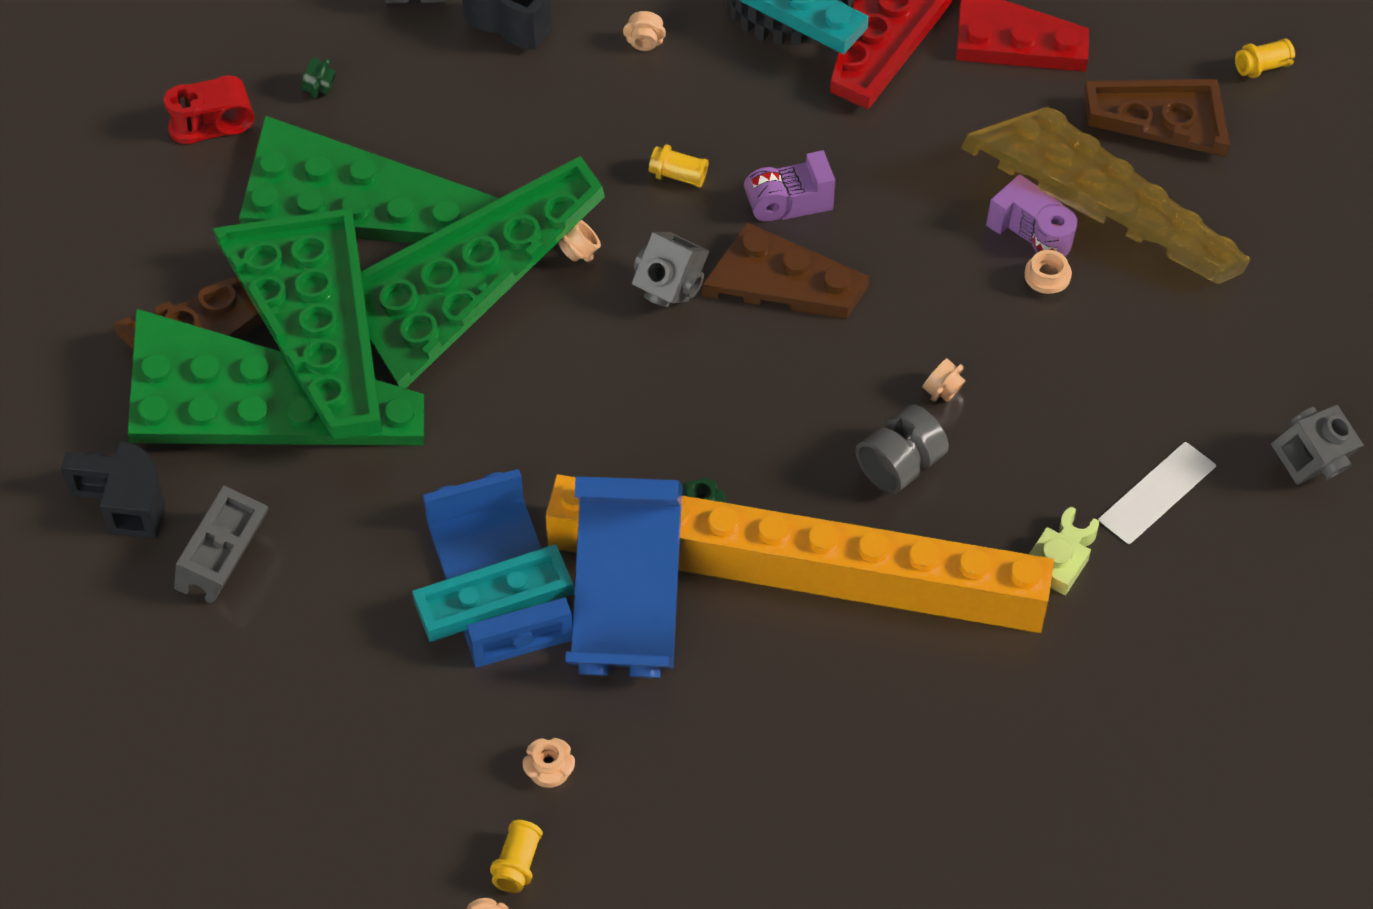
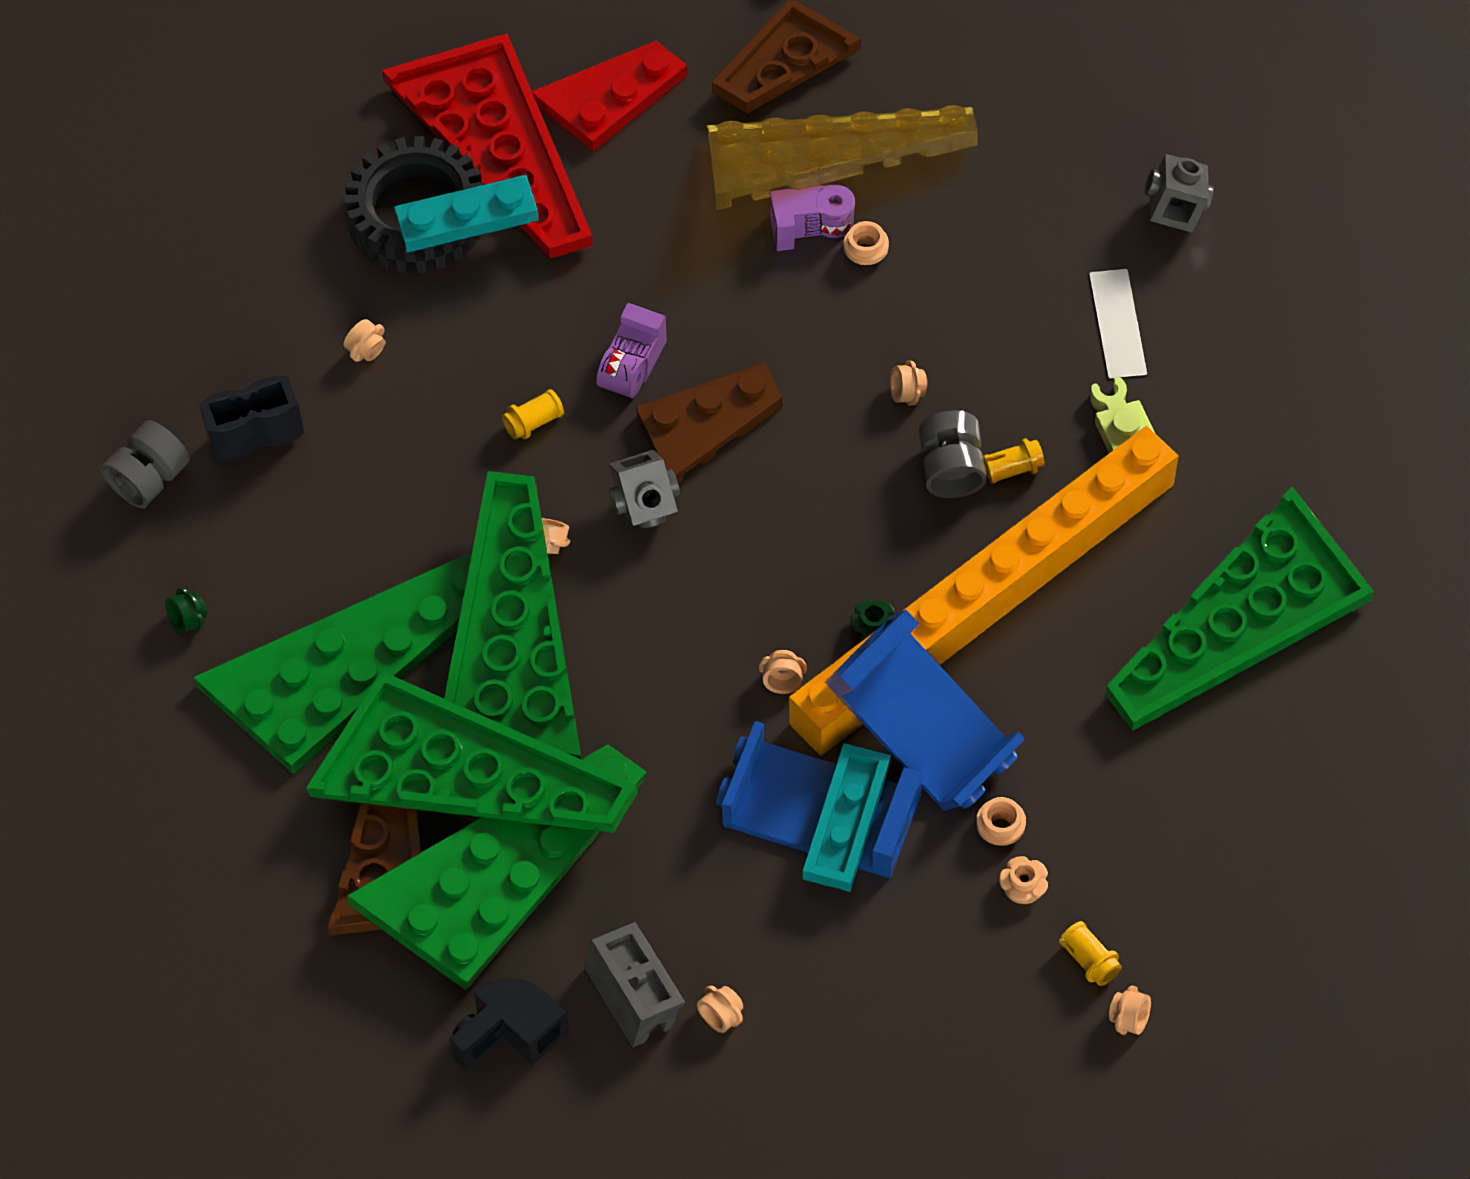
camera: 50 degrees left, 5 degrees up
(212, 106) = (148, 716): red piece -> none
(249, 621) = (720, 1008): none -> light nougat plate
(590, 696) = (1003, 809): none -> light nougat plate
(595, 462) = (782, 671): none -> light nougat plate
(943, 499) = (1014, 461): none -> yellow pin
(968, 763) = (1252, 605): none -> green wing

